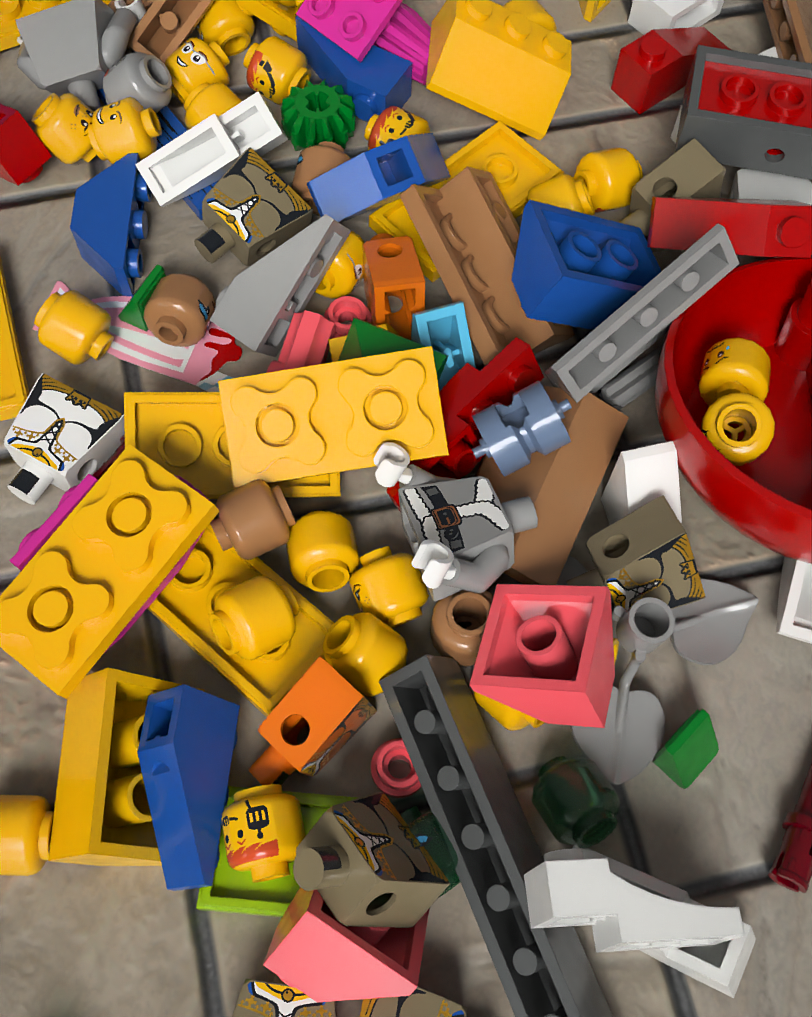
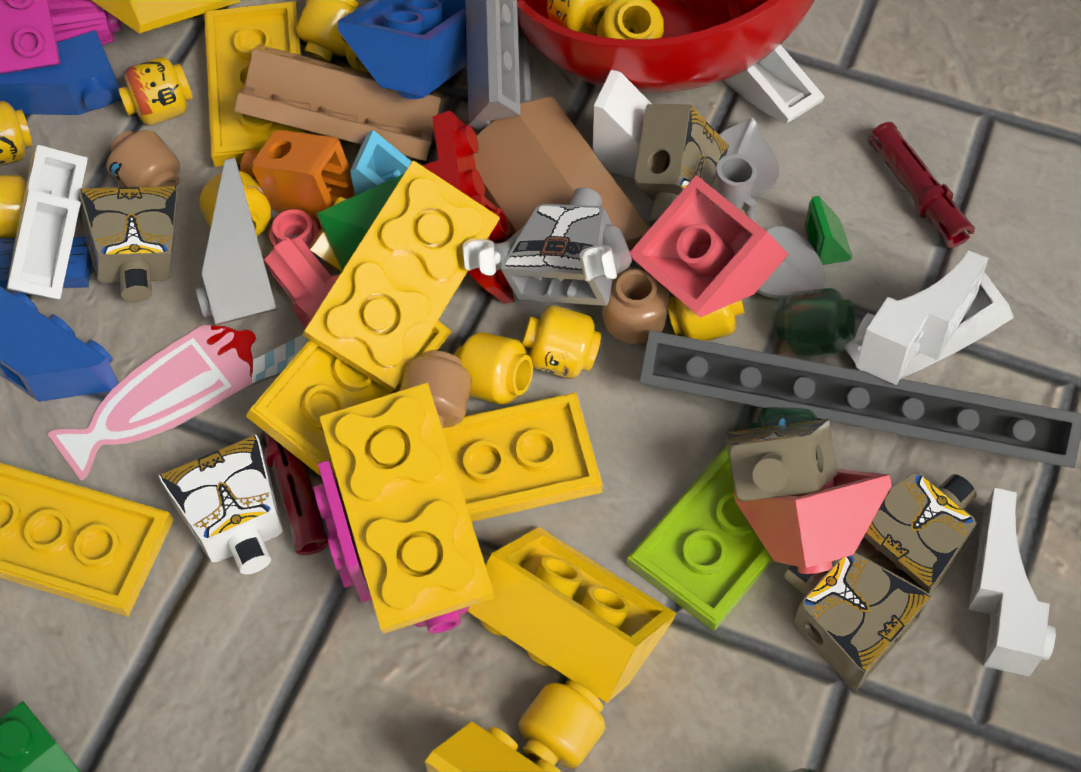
camera: 50 degrees left, 5 degrees down
(74, 327) = (124, 434): yellow head -> none
(134, 310) = (138, 368): green slope -> none
(180, 307) = (178, 342): medium nougat head -> none
(185, 774) = (619, 563): blue slope -> none
(254, 617) = (522, 436): yellow head -> none
(262, 831) = (699, 528): yellow head -> none
(318, 115) = (76, 128): green gear -> none
(324, 704) = (636, 450): orange torso -> none
(364, 651) = (605, 385): yellow head -> none
(378, 176) = (196, 123): blue slope -> none
(382, 758) = (707, 411): coral plate -> none
(521, 428) = (516, 152): sand blue wheel -> none

